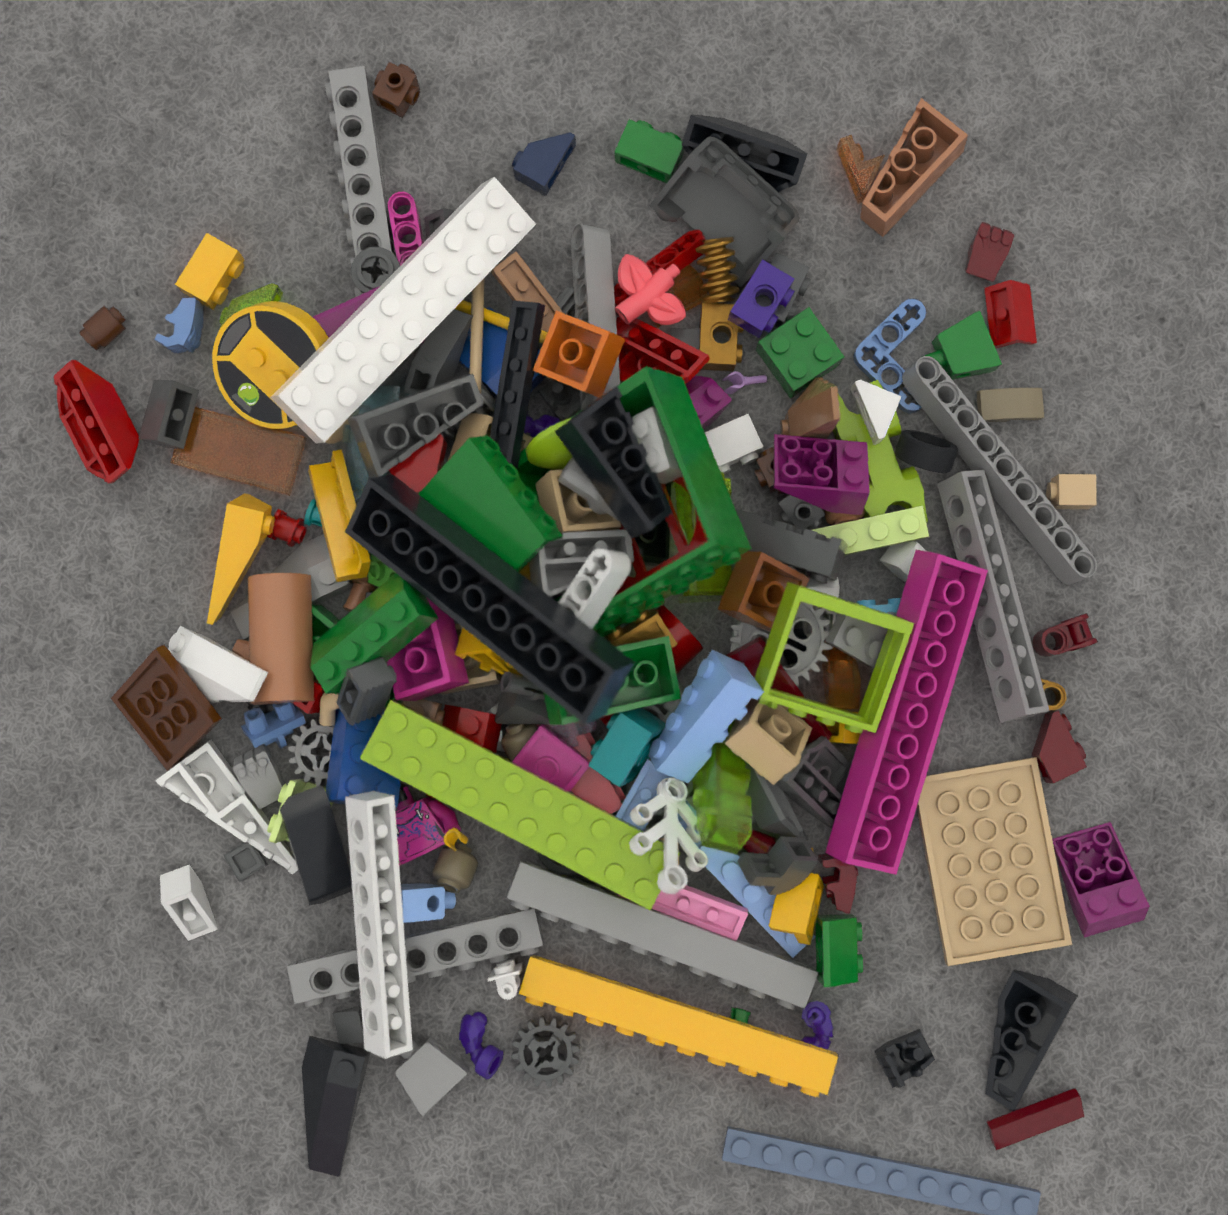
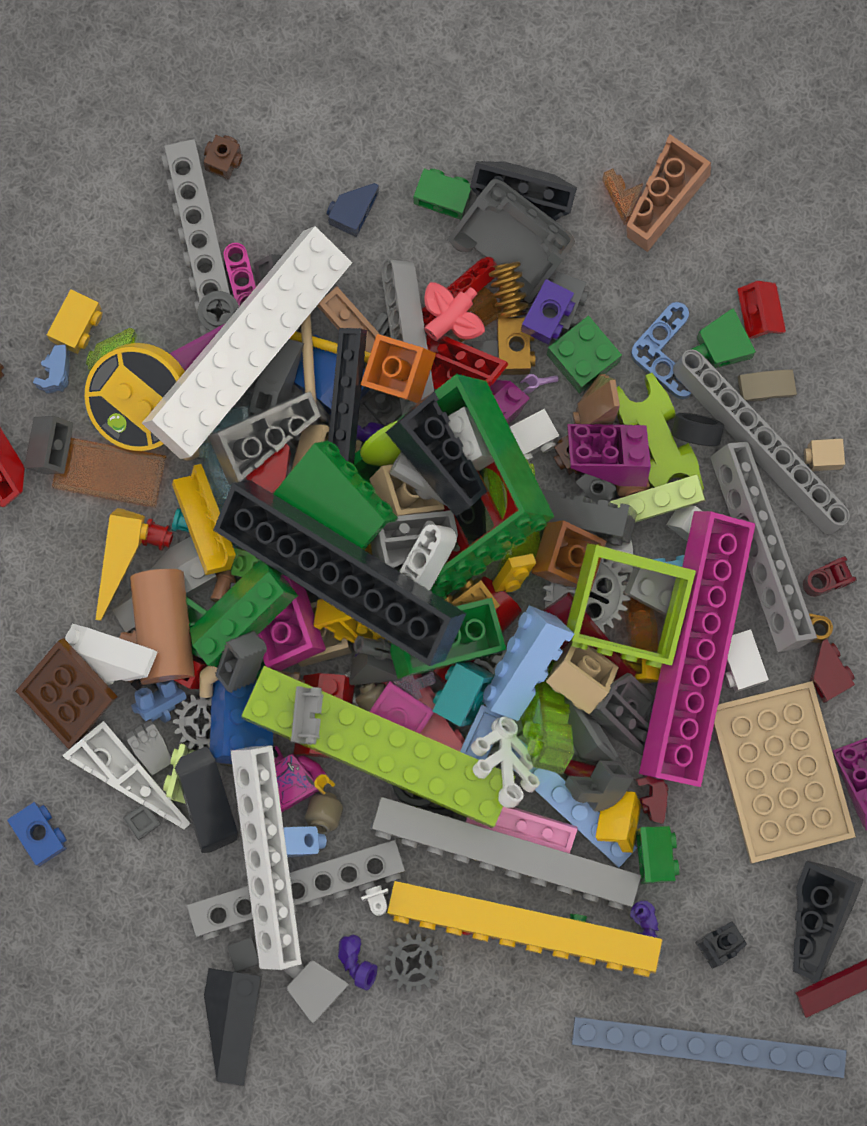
camera: 10 degrees left, 5 degrees down
(107, 858) = (23, 825): none -> blue brick
(187, 902) = (95, 860): white slope -> none
(436, 754) = (305, 725): none -> light grey hinge
(697, 608) = (514, 573): none -> yellow plate
(876, 408) = (651, 395): white slope -> none
(959, 731) = (744, 663): none -> white brick
(988, 251) = (737, 257): dark red hand -> none

